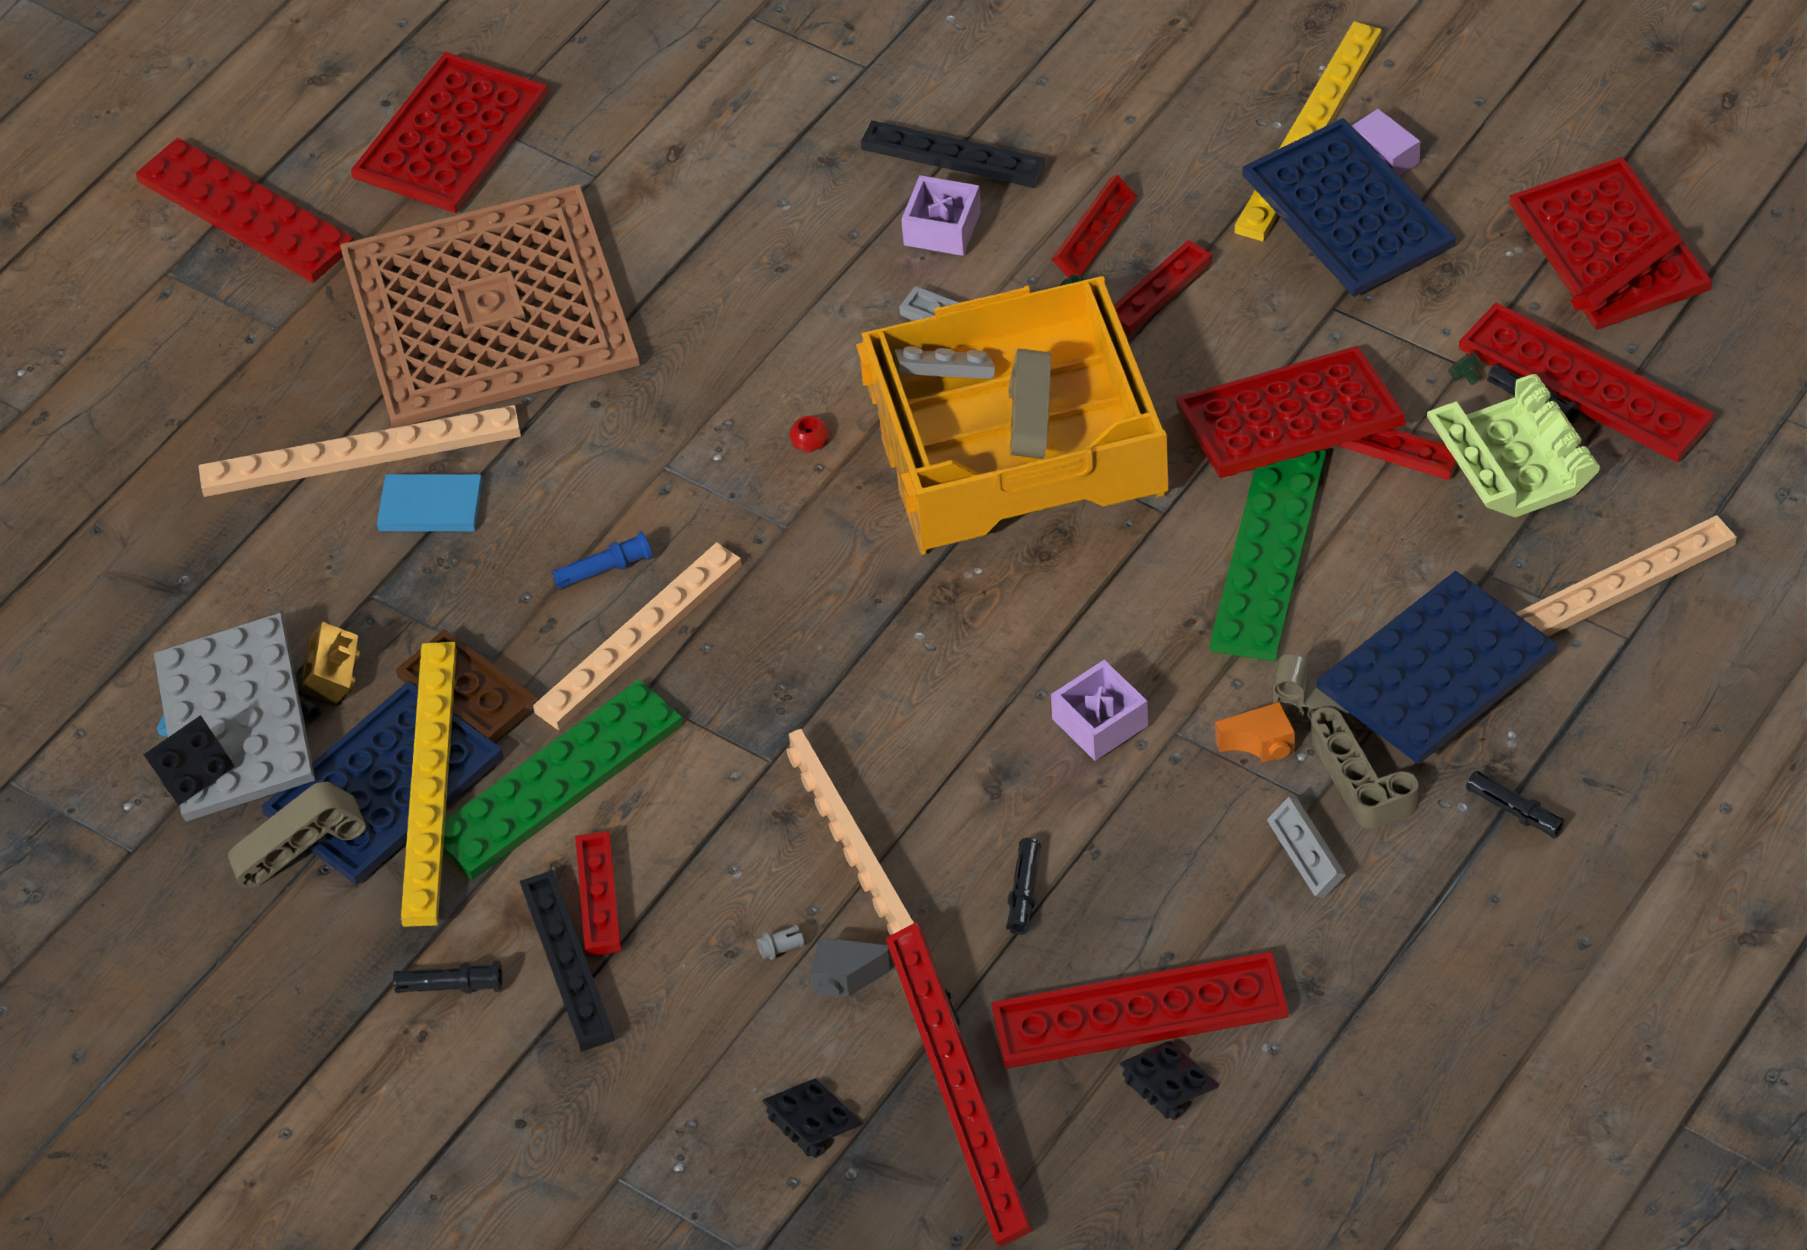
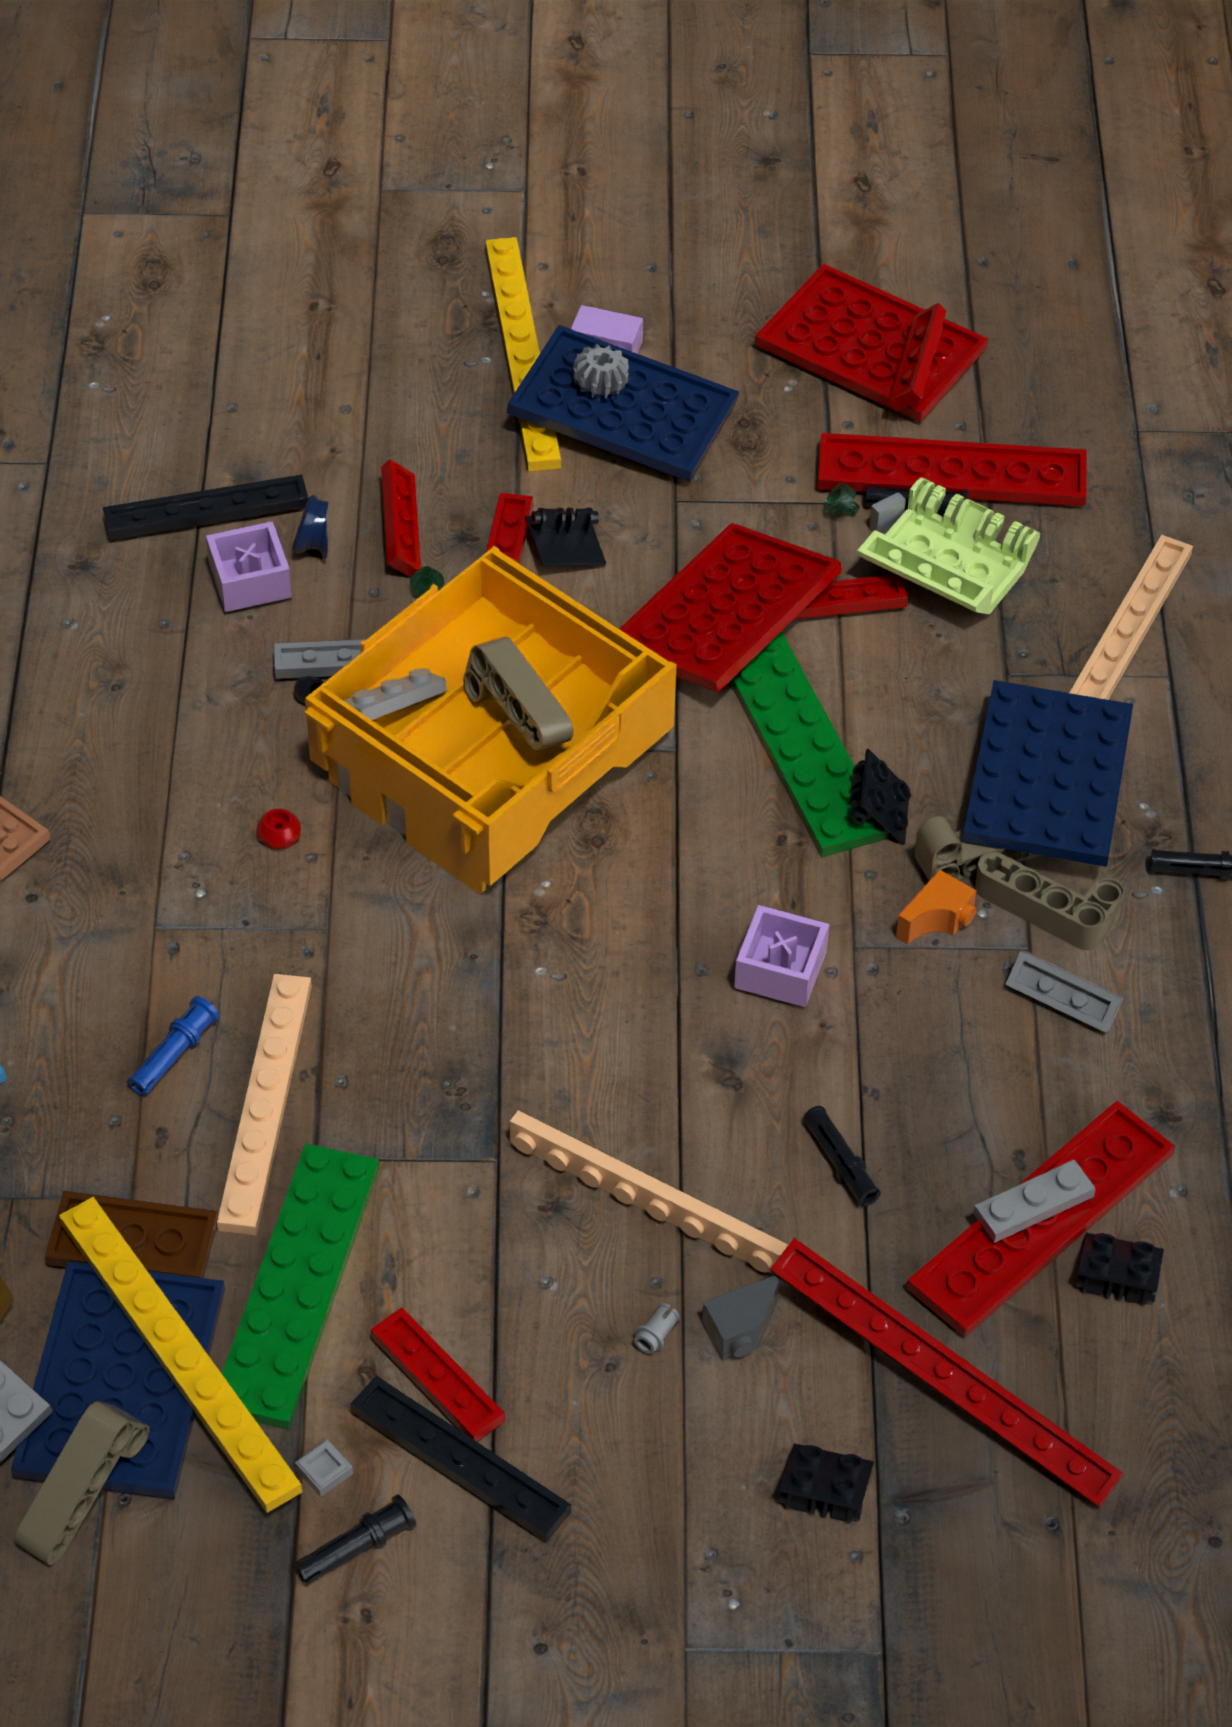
camera: 40 degrees left, 0 degrees up
(471, 918) = (324, 1468): none -> light grey tile
(1014, 204) = (313, 528): none -> dark blue piece
(1135, 993) = (1034, 1201): none -> light grey plate
(1211, 300) = (566, 537): none -> black hinge
(1286, 622) = (880, 796): none -> black hinge
(1338, 170) = (601, 371): none -> light grey gear
(1493, 392) = (886, 512): none -> light grey tile

